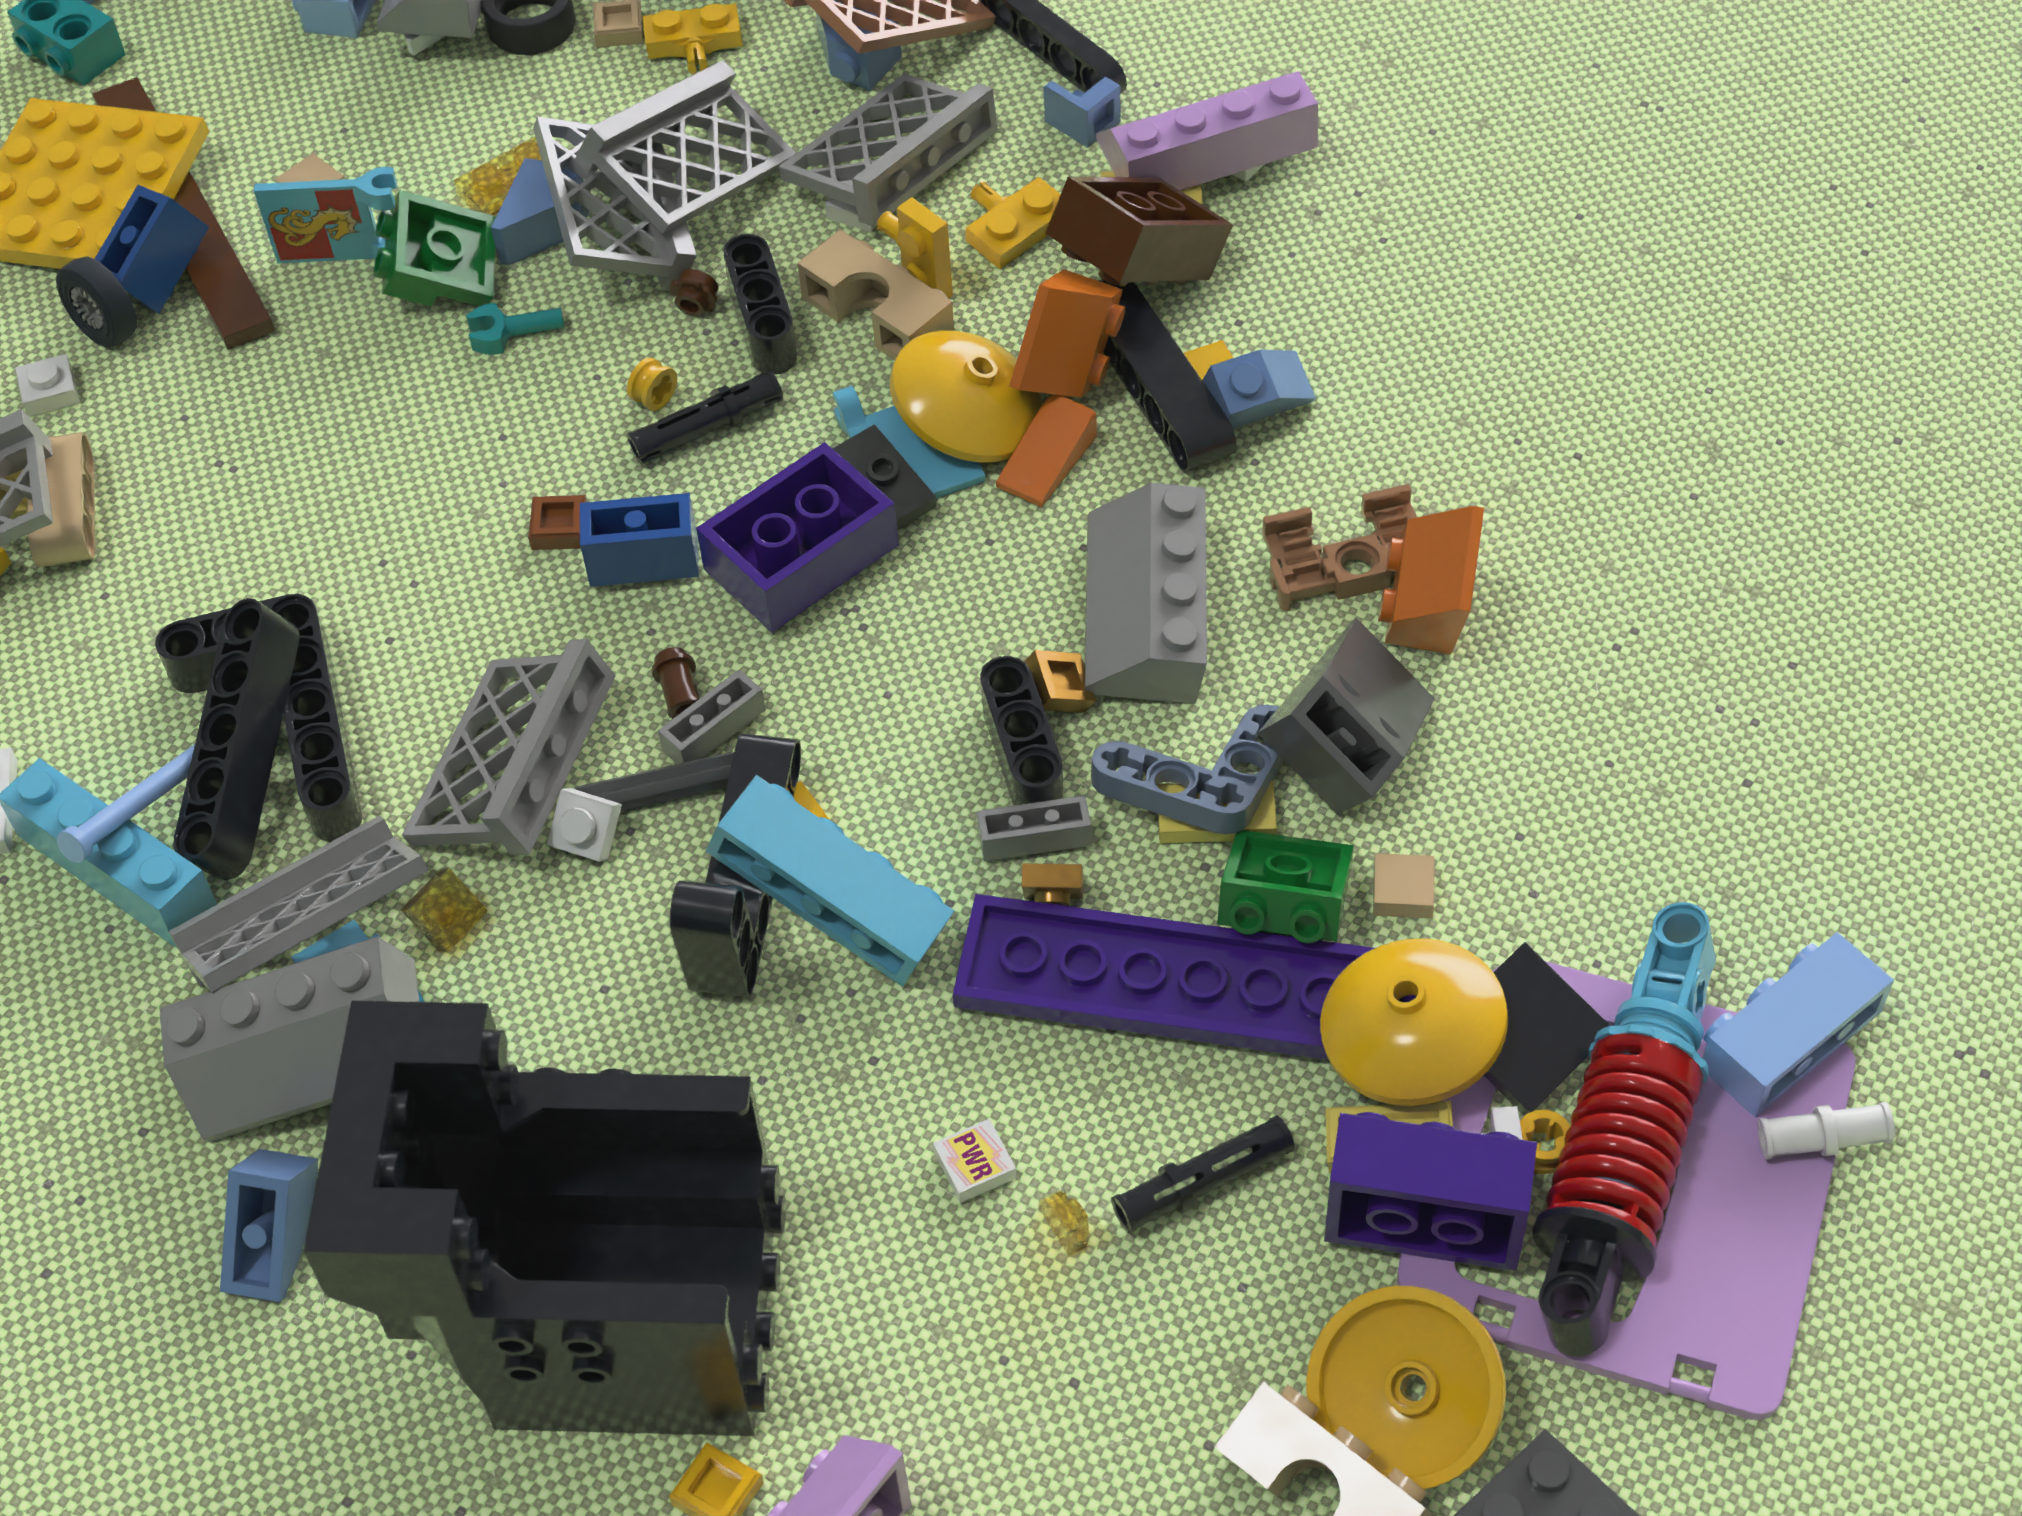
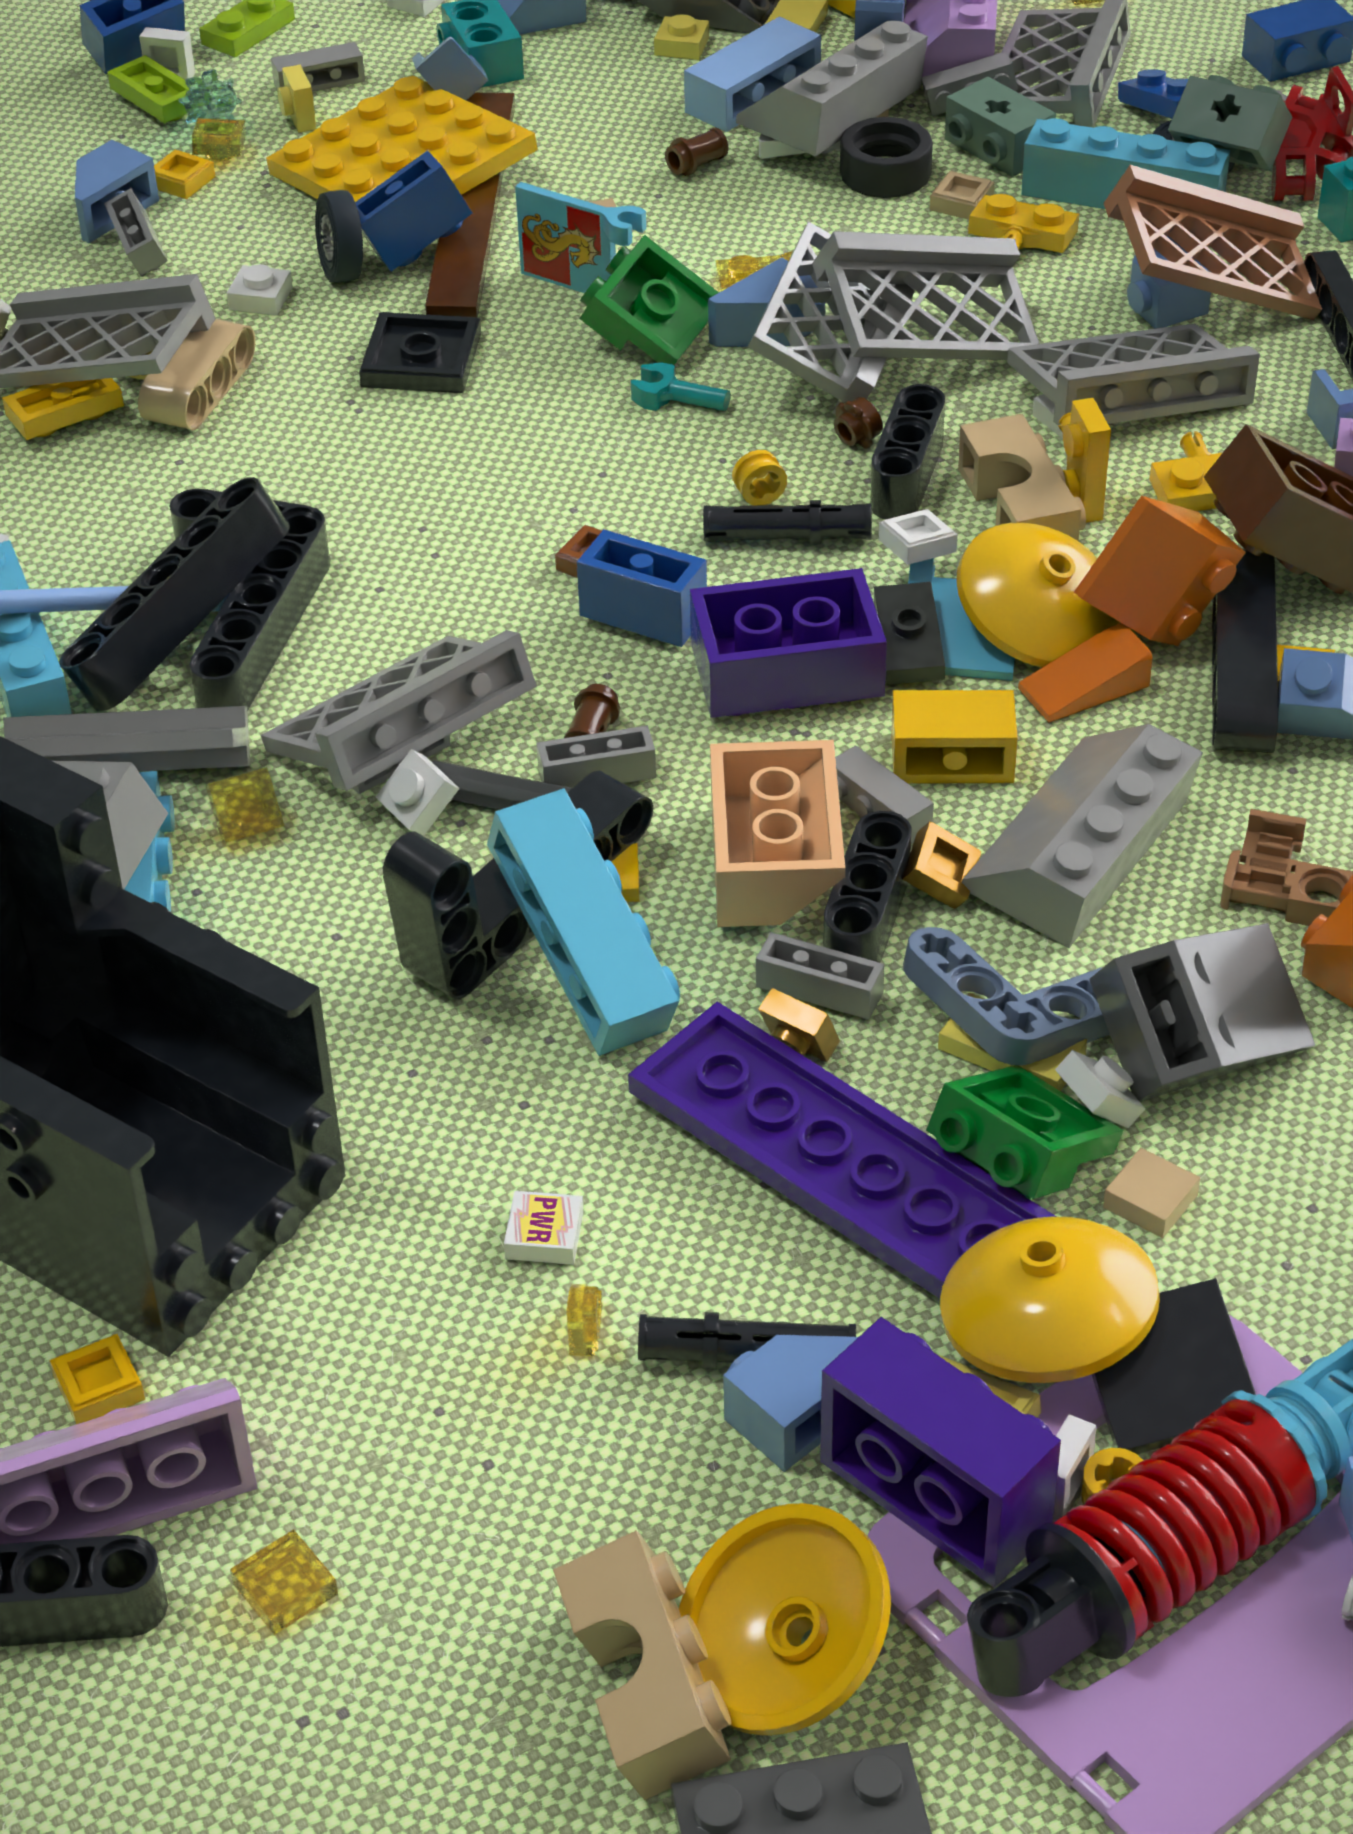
camera: 30 degrees right, 10 degrees down
(71, 81) = (451, 69): none -> medium blue panel
(250, 386) = (420, 352): none -> black tile
(347, 80) = (686, 155): none -> reddish brown pin
(837, 387) = (917, 536): none -> white tile
(914, 717) = (774, 828): none -> light nougat slope
(959, 639) = (872, 787): none -> light grey piece
(987, 559) = (954, 736): none -> yellow brick
(1273, 1194) = (777, 1394): none -> medium blue slope
(1315, 817) = (1101, 1087): none -> white plate

